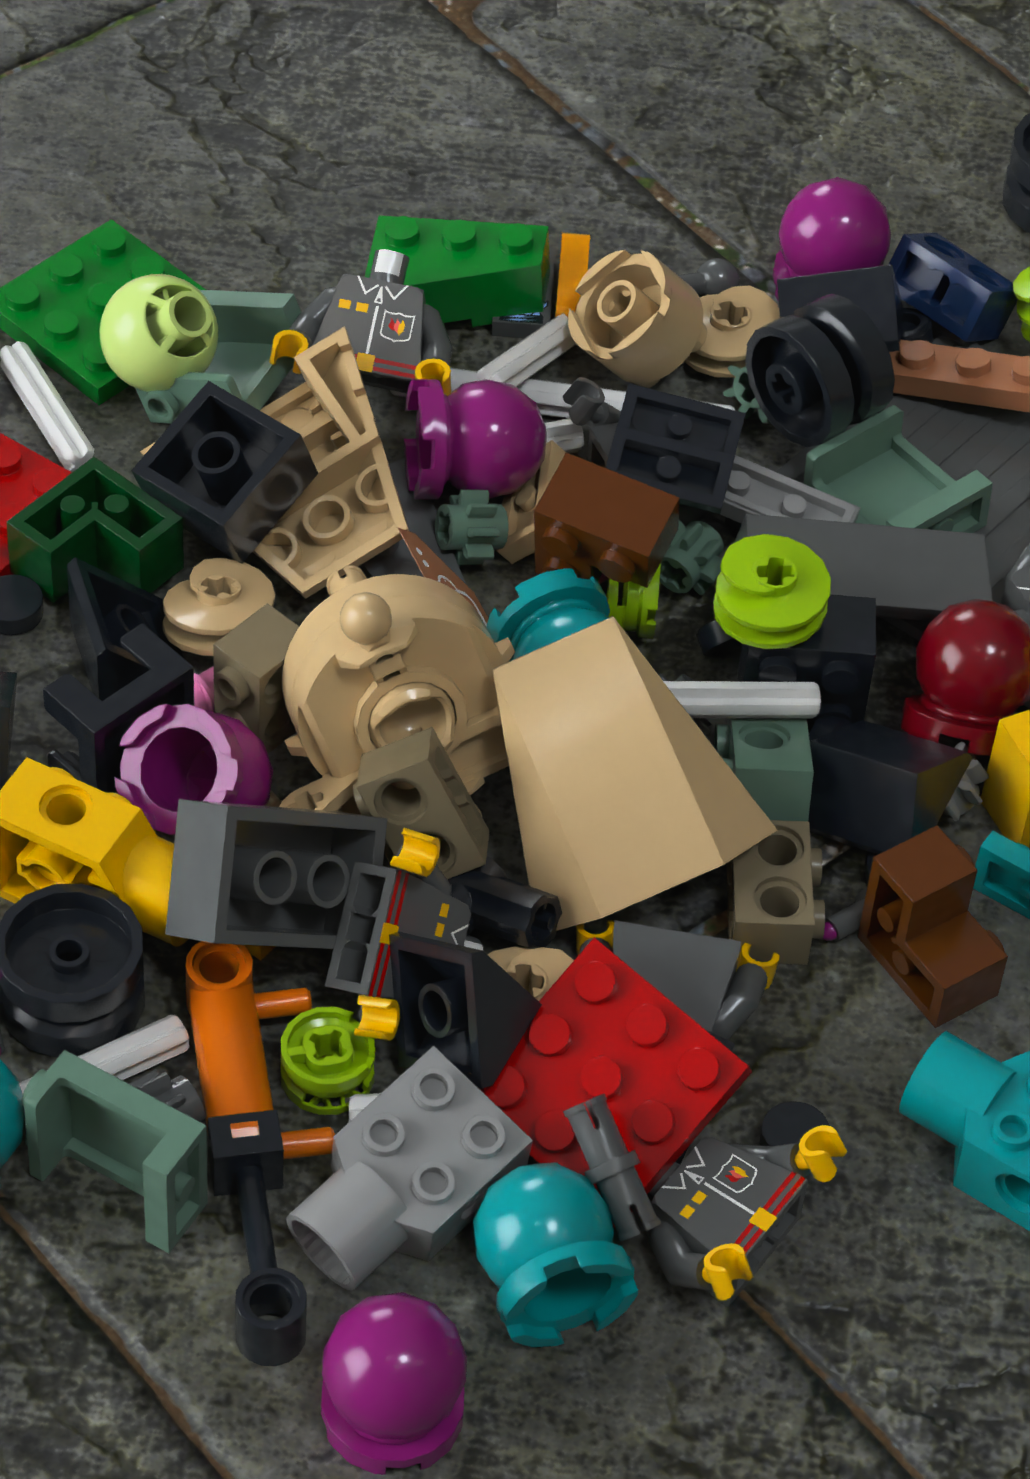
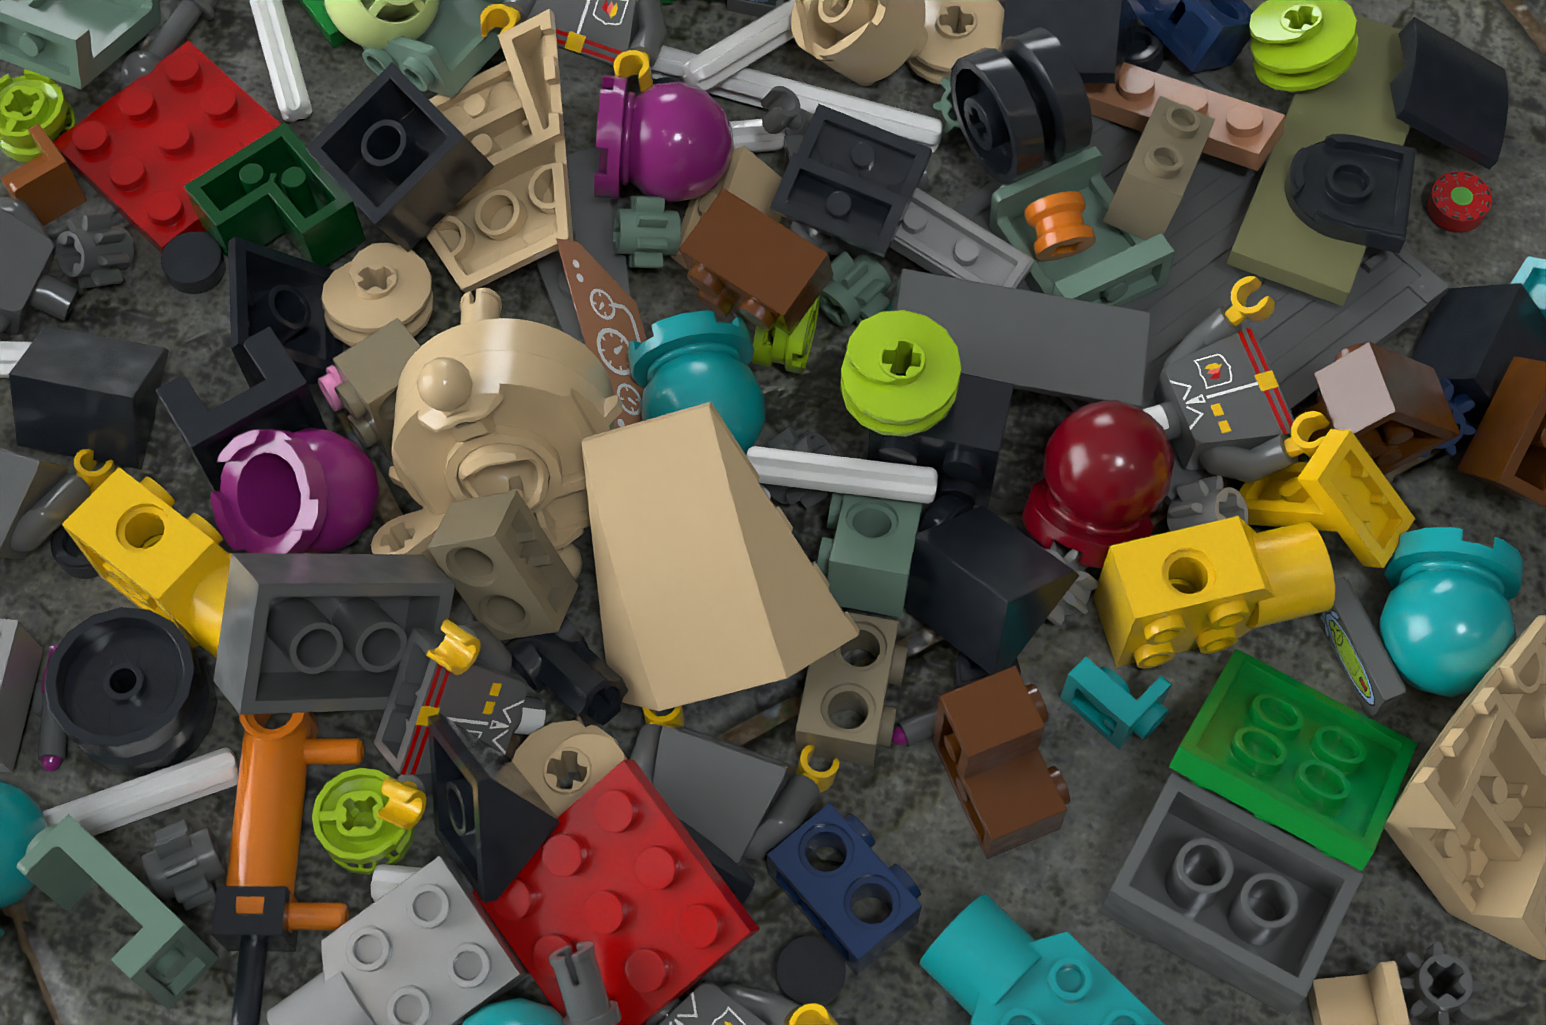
camera: 15 degrees right, 15 degrees up
(806, 1062) = (829, 896): none -> dark blue brick
(876, 476) = (1059, 225): none -> orange wheel
(959, 418) = (1159, 169): none -> dark tan brick

